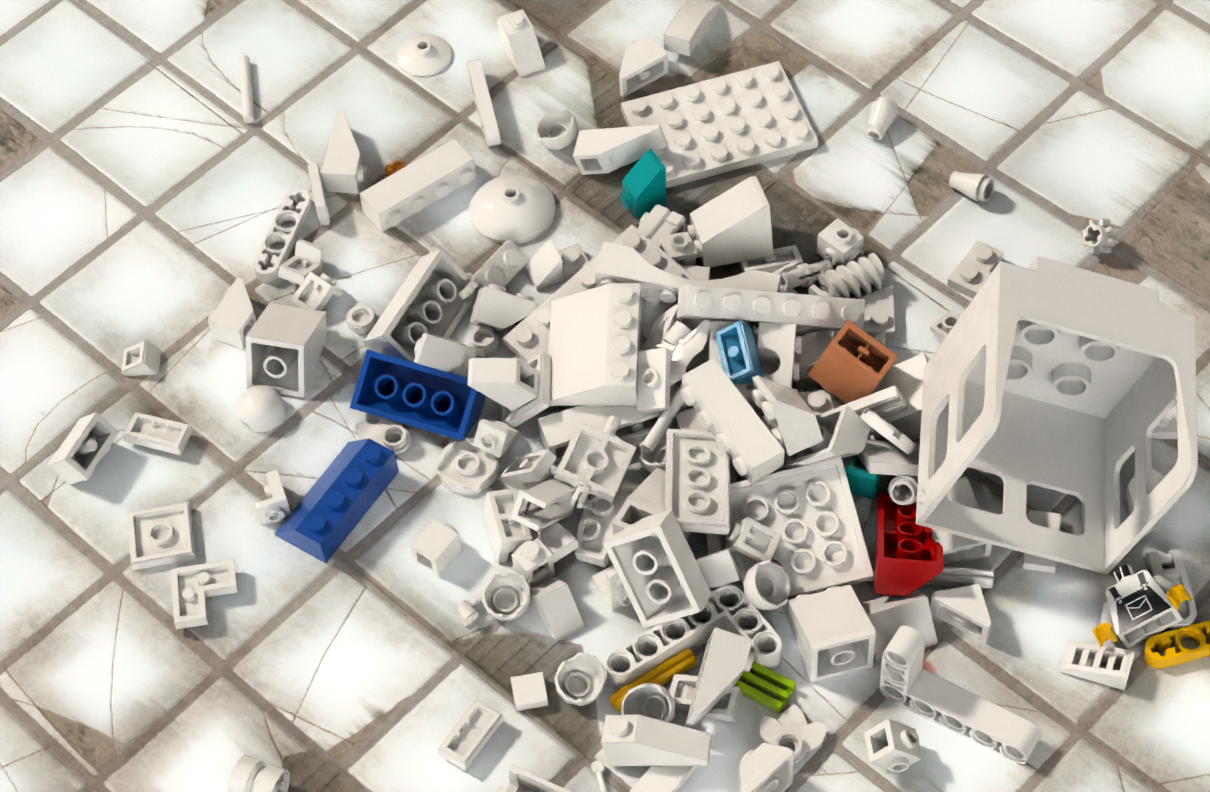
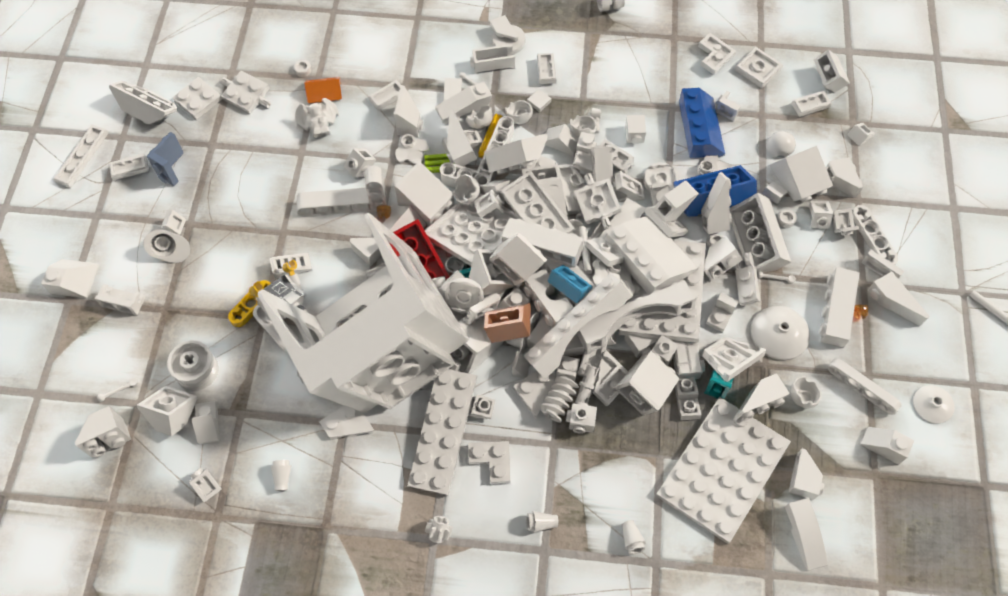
camera: 140 degrees right, 10 degrees up
(338, 355) = (775, 192): none -> white slope
(608, 198) = (731, 357): none -> white wing
(695, 197) = (687, 399): none -> white slope
(866, 508) = (454, 264): none -> light grey wheel

